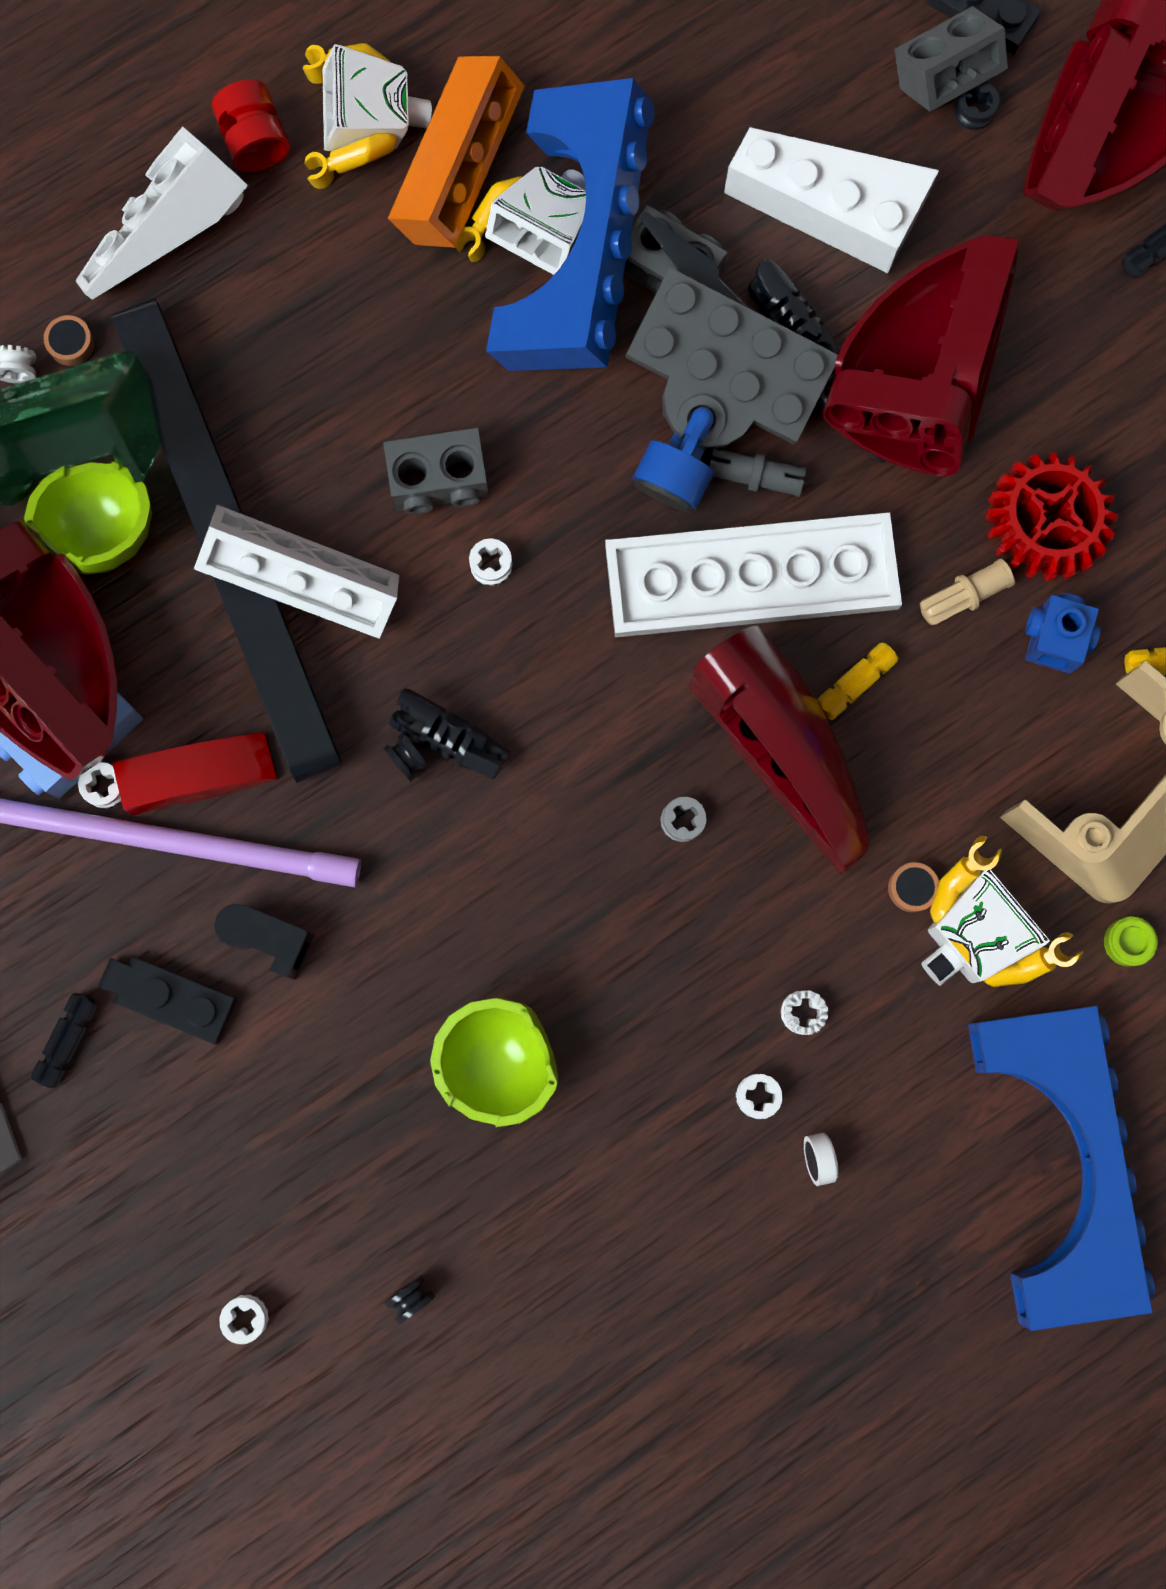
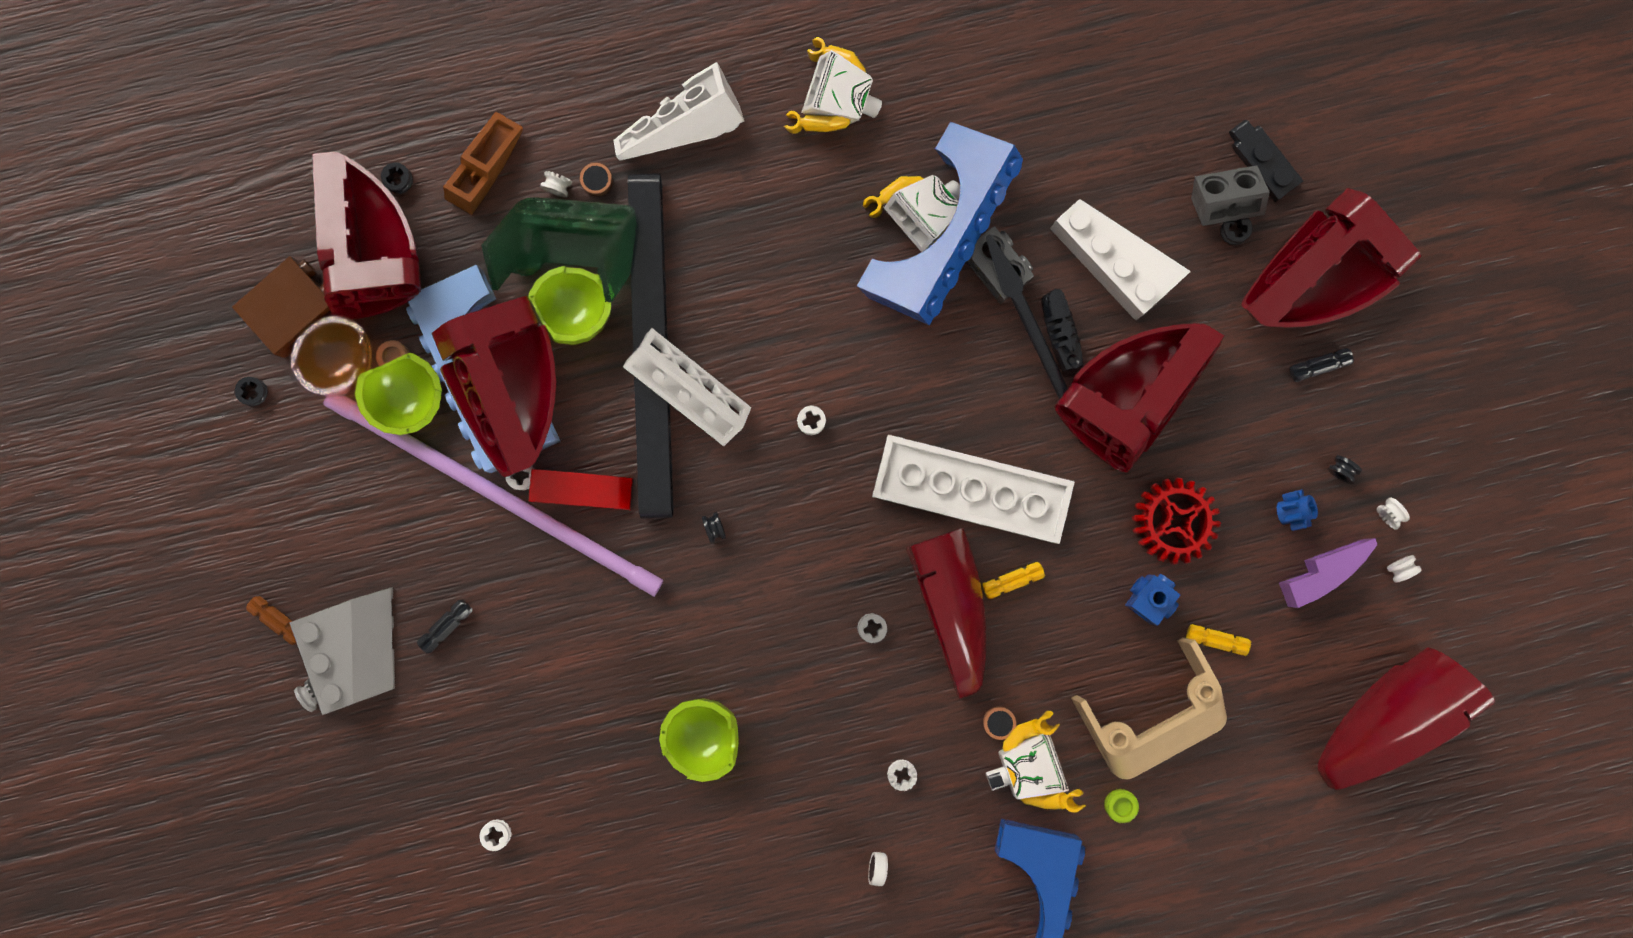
camera: 20 degrees right, 5 degrees up
(169, 998) = (516, 623): black hinge -> none
(249, 928) = (588, 606): black leg -> none
(250, 126) = (759, 74): red wheel -> none
(409, 1299) = (598, 861): black bush -> none
(435, 457) = (800, 341): dark grey brick -> none
(448, 734) = (745, 522): black hinge -> none
(456, 151) = (886, 144): orange brick -> none
(721, 376) = (999, 358): dark grey plate -> none
(757, 472) = (1001, 423): dark grey pin -> none
(767, 1109) = (852, 806): white bush -> none
(967, 592) = (1104, 549): tan axle -> none

